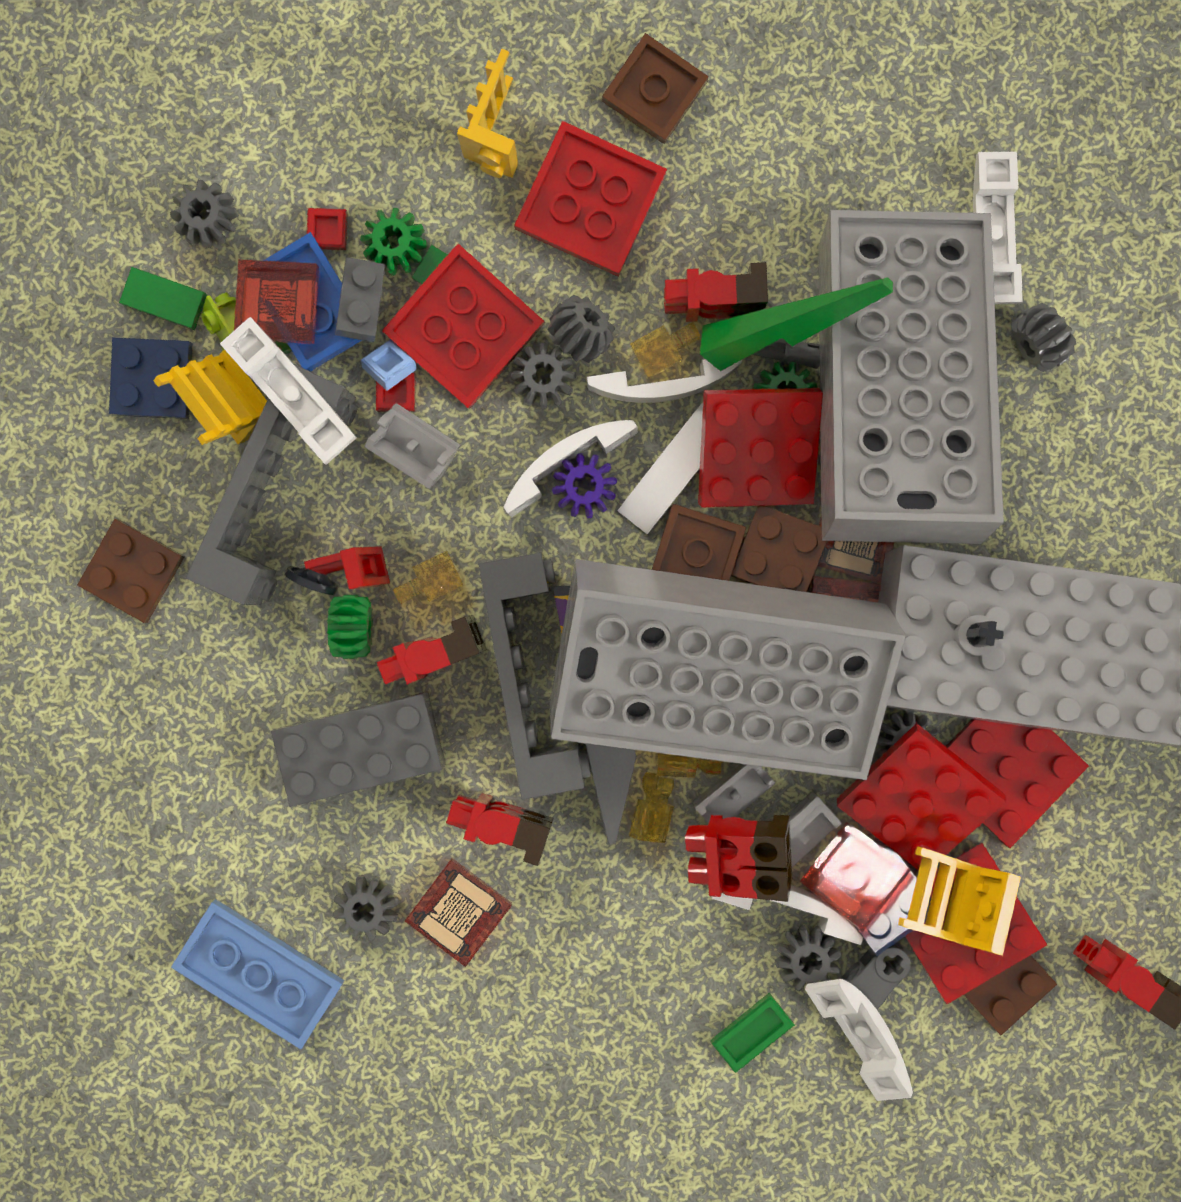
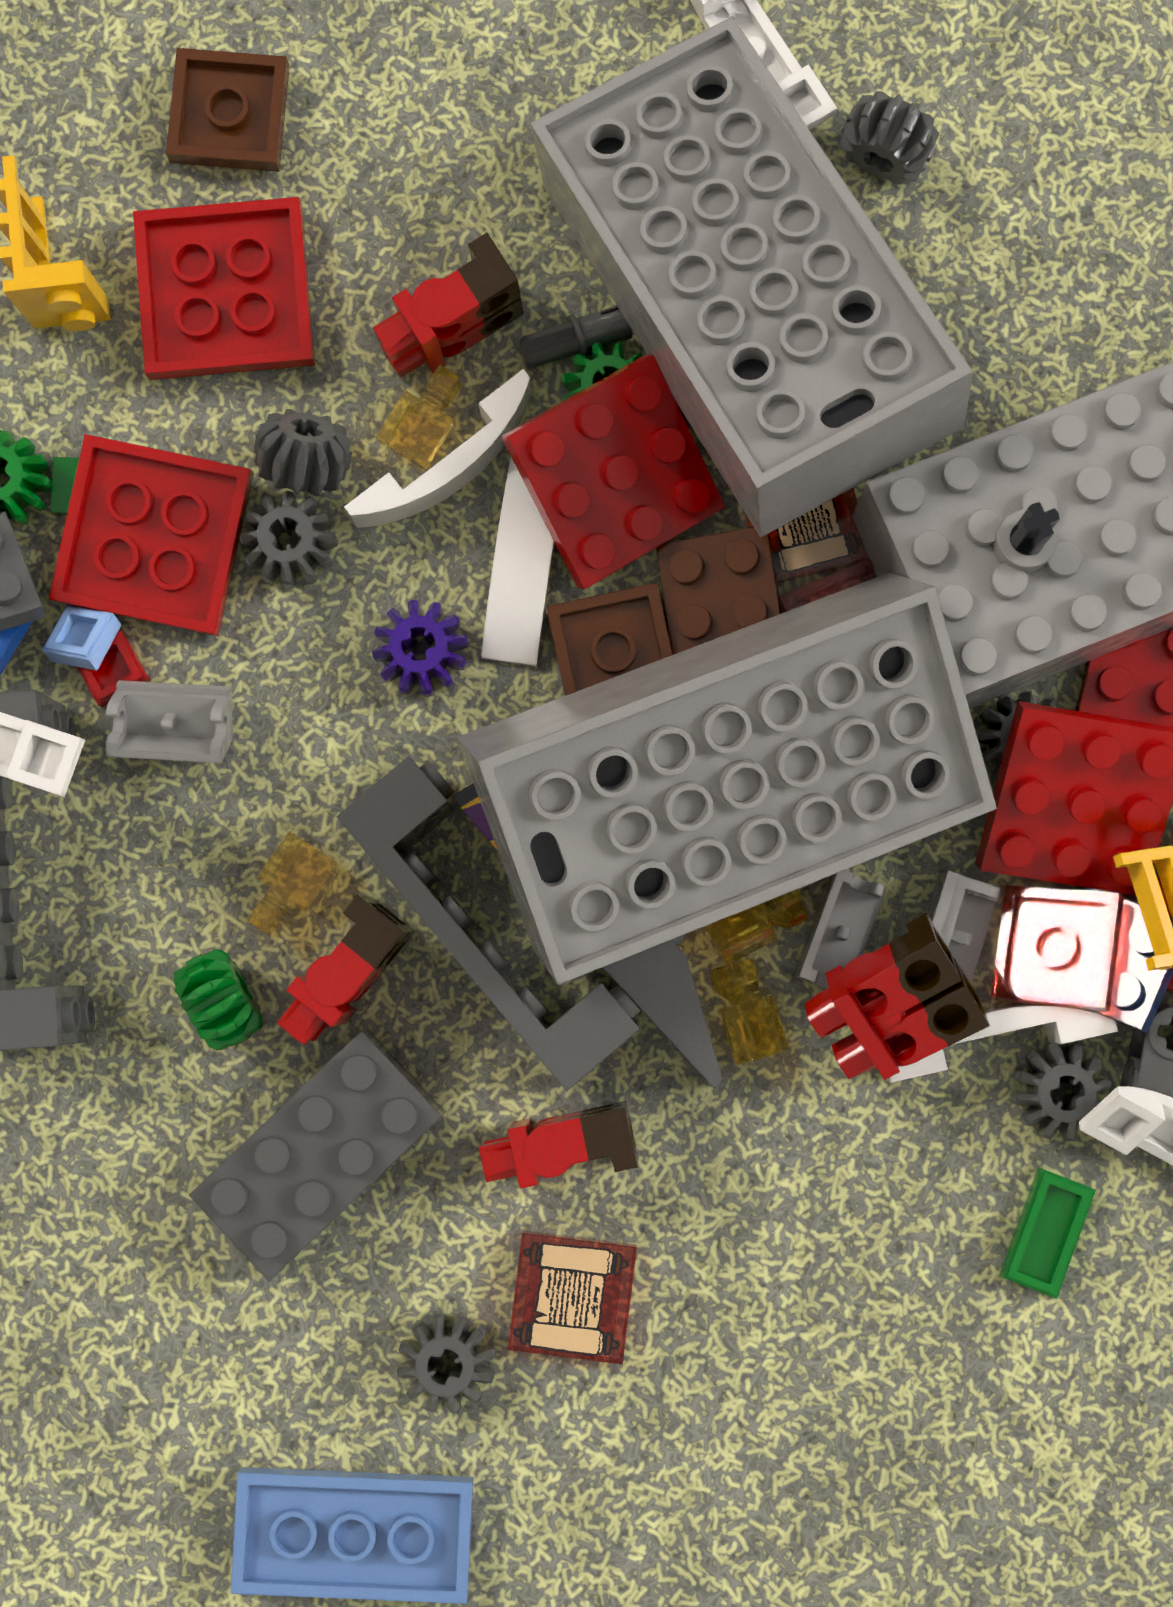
camera: 30 degrees left, 5 degrees down
(362, 566) = (187, 908): red piece -> none
(608, 435) = (411, 567): white slope -> none
(741, 336) = (507, 344): green wedge -> none

